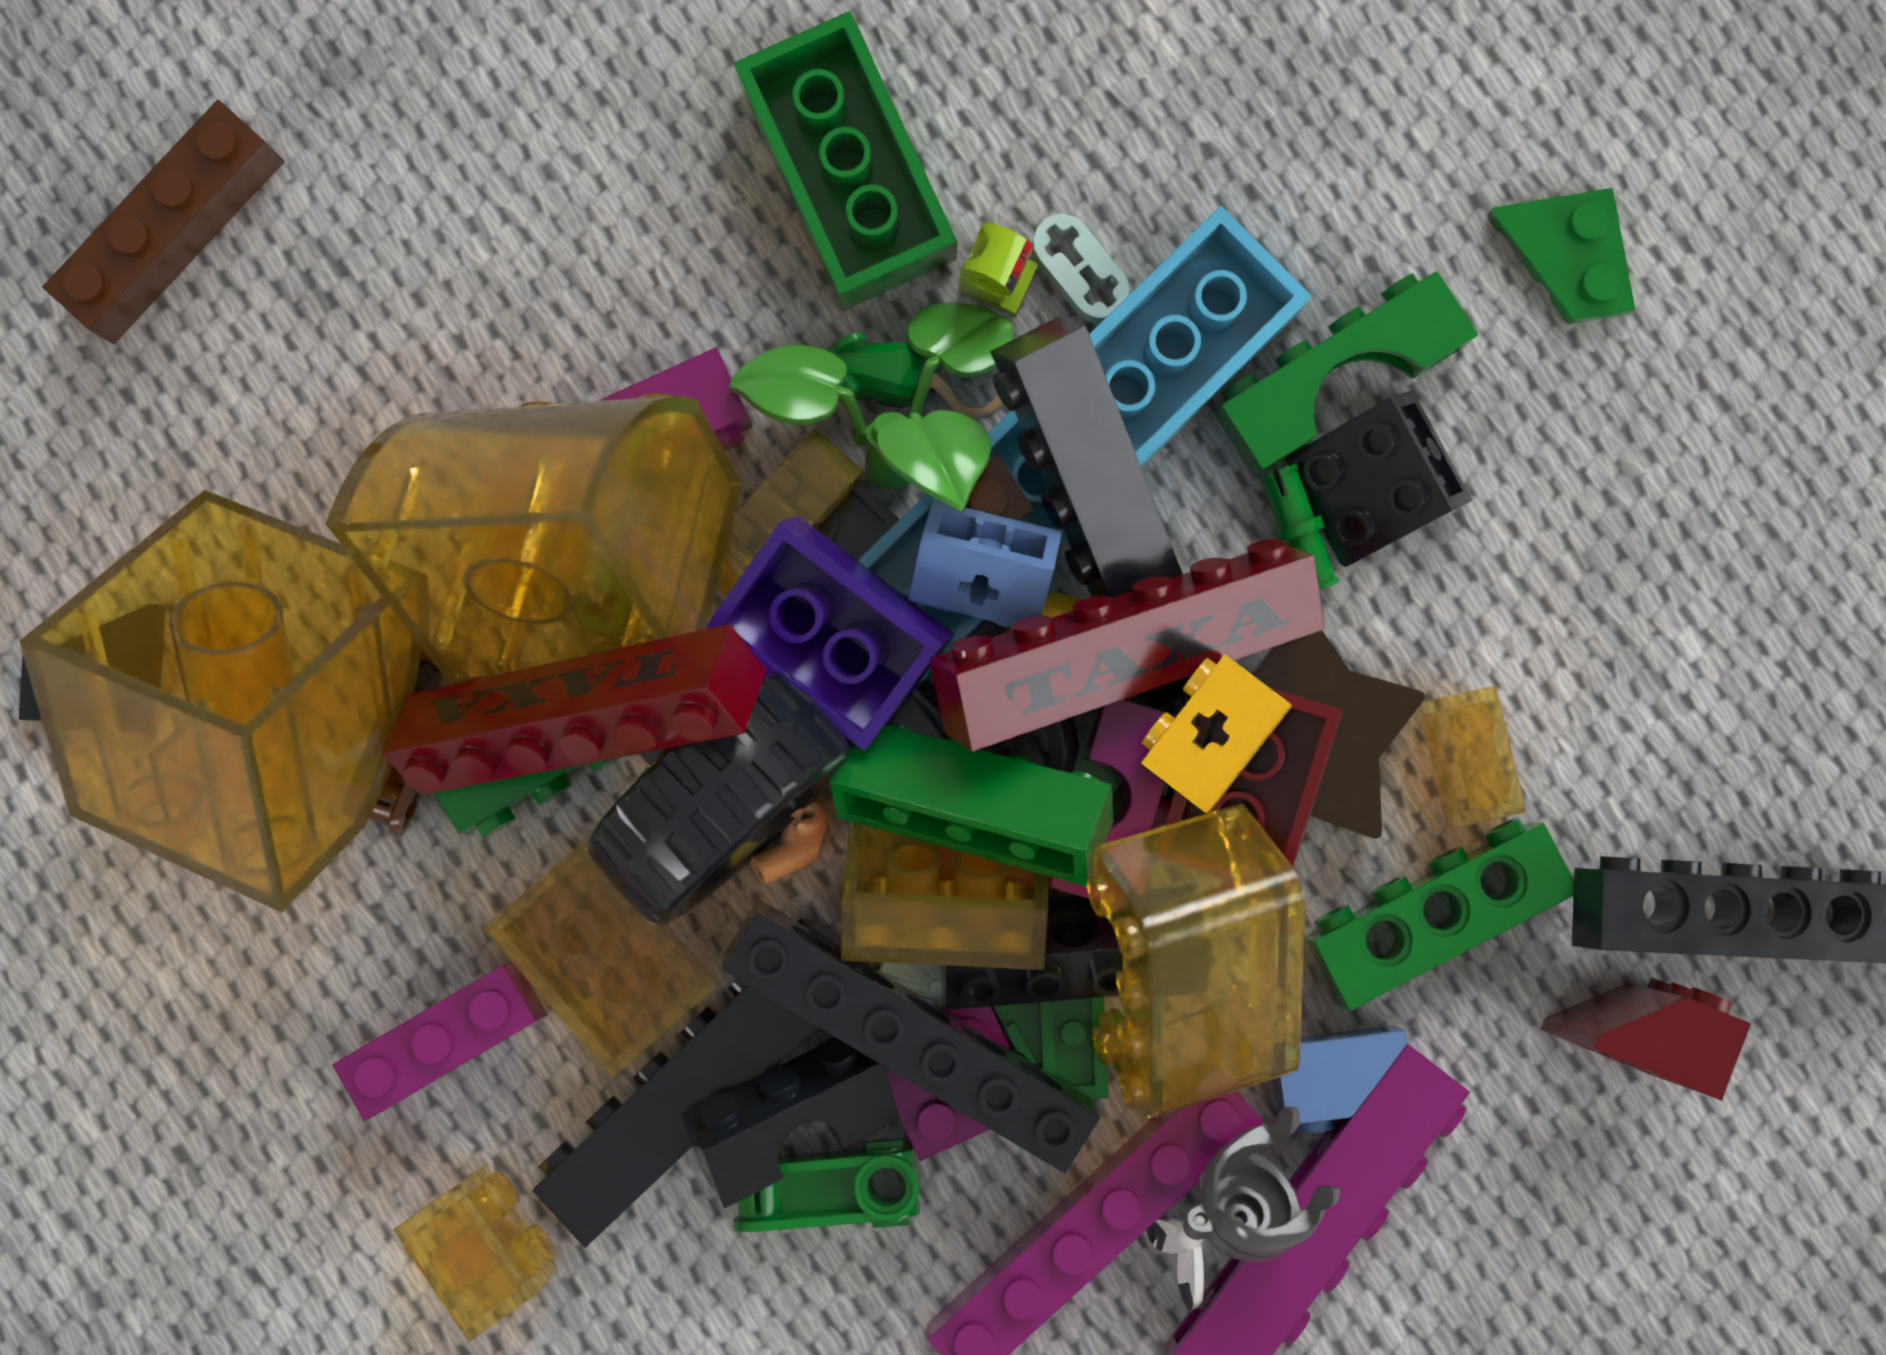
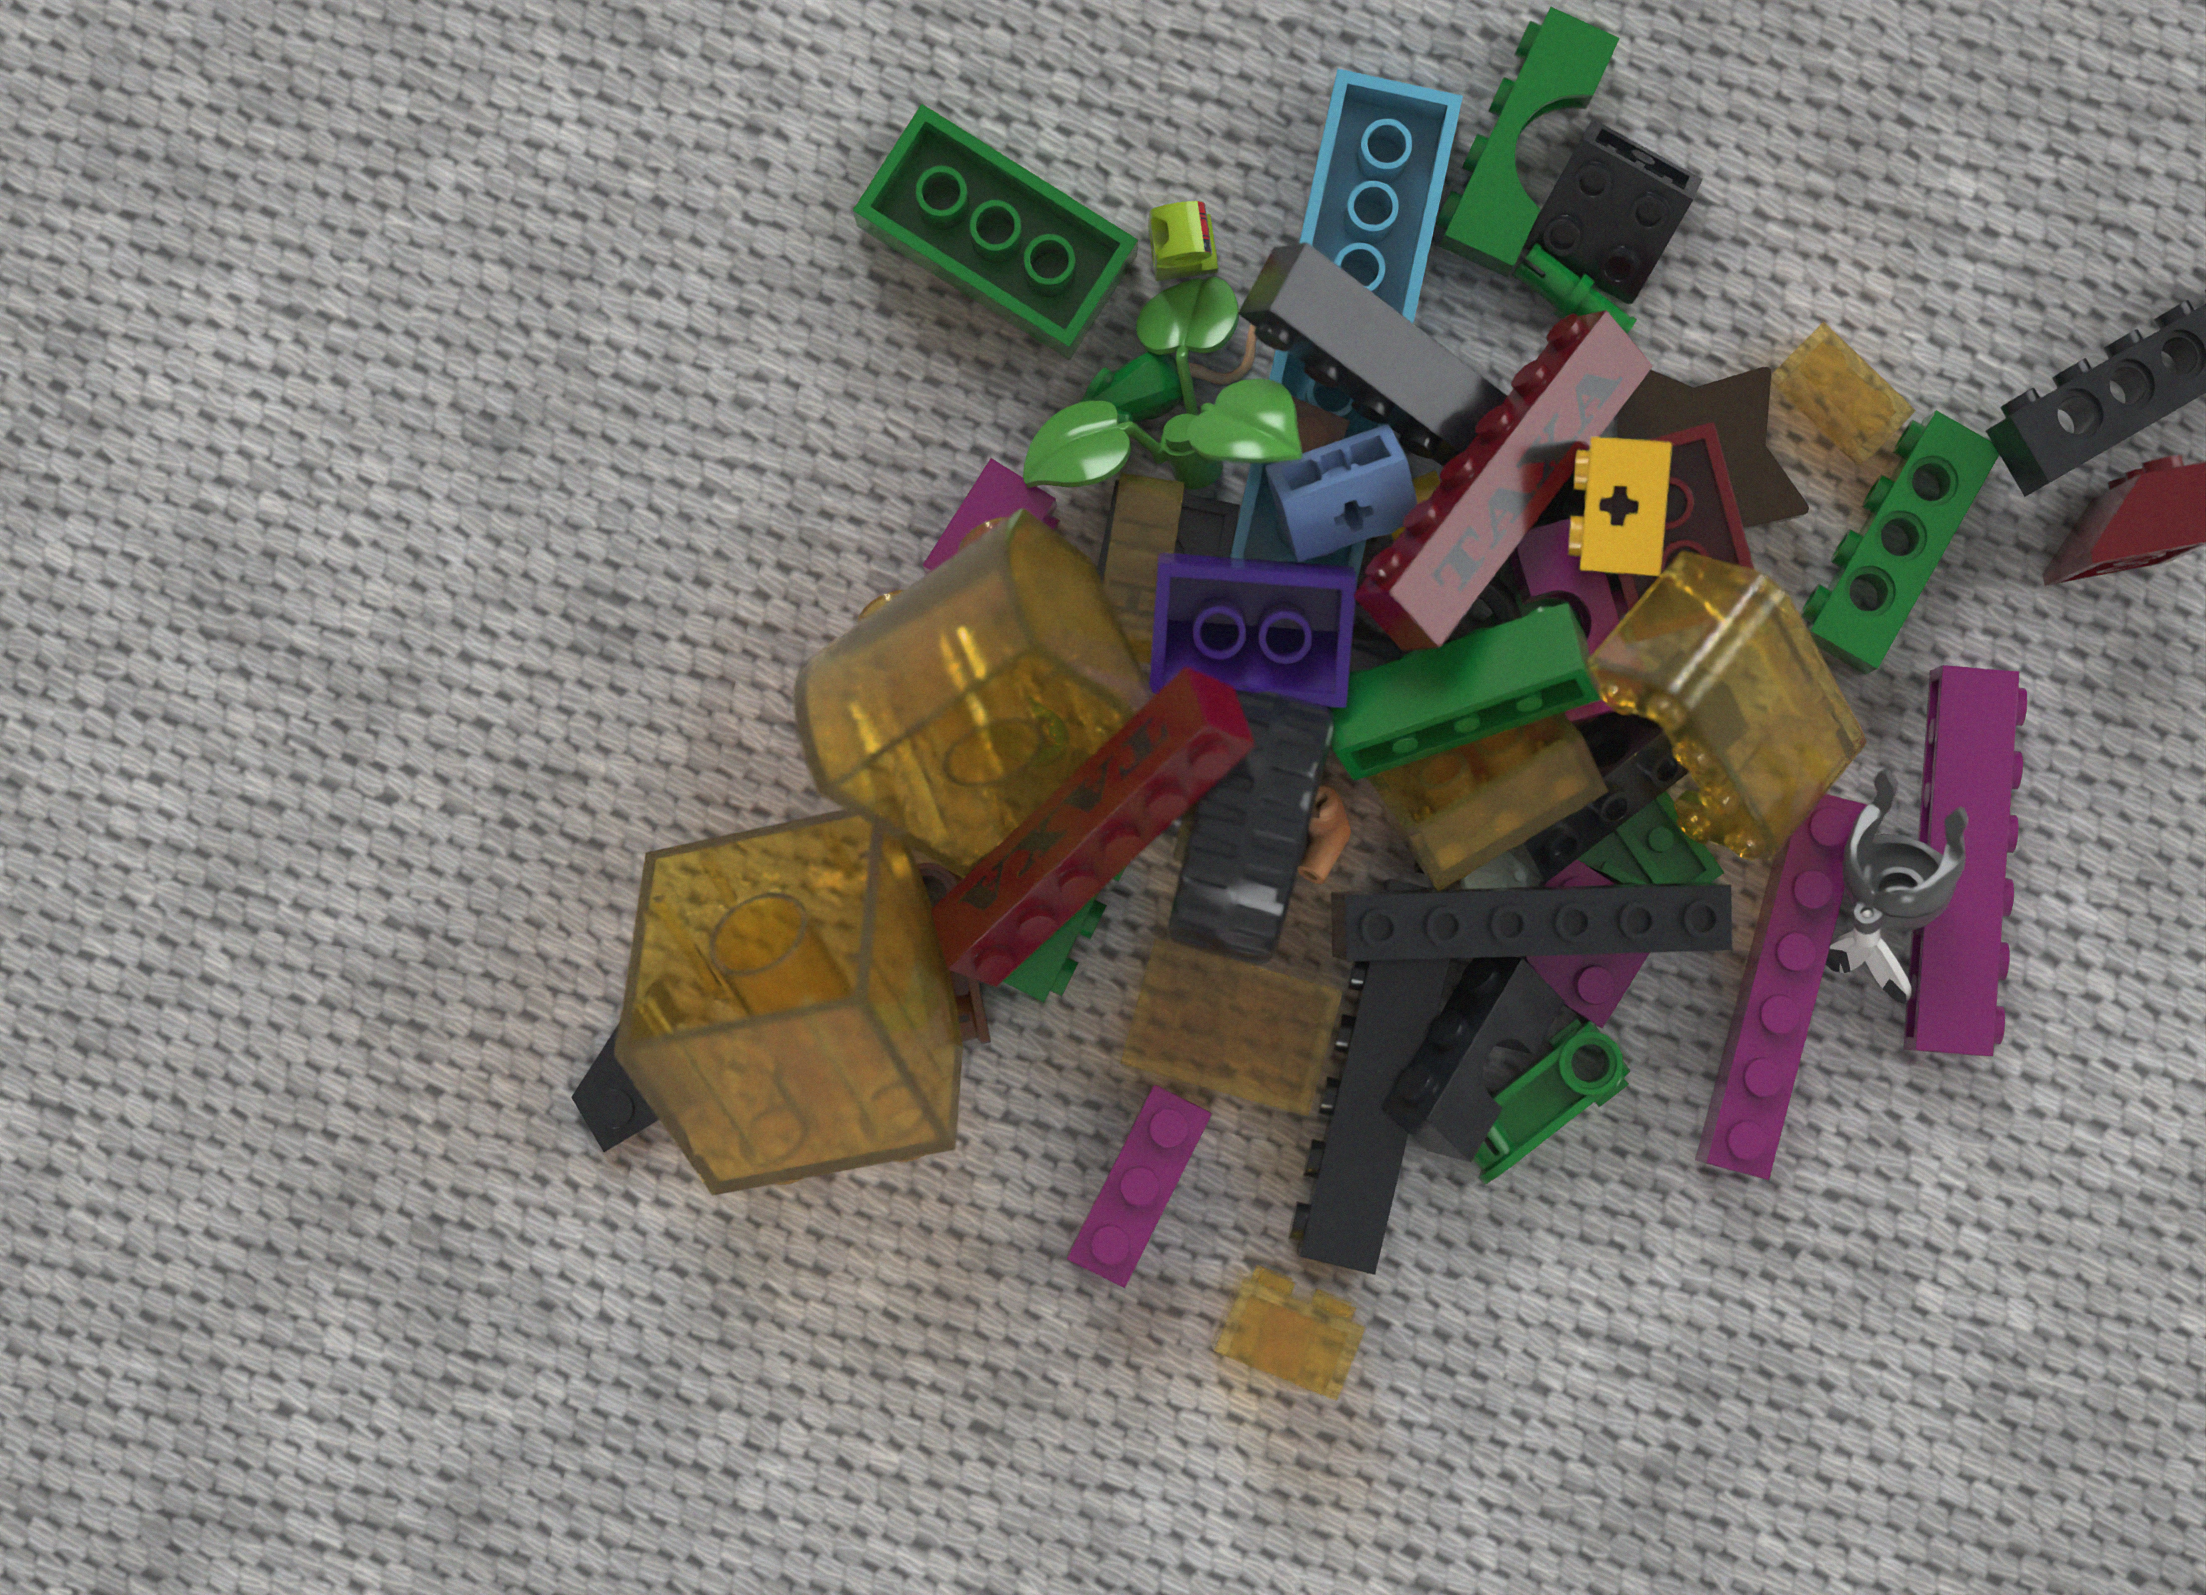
camera: 30 degrees left, 0 degrees up
(163, 223) = (452, 653): reddish brown brick -> none
(1092, 259) = (1253, 181): light aqua beam -> none
(1337, 1074) = (1901, 730): medium blue slope -> none

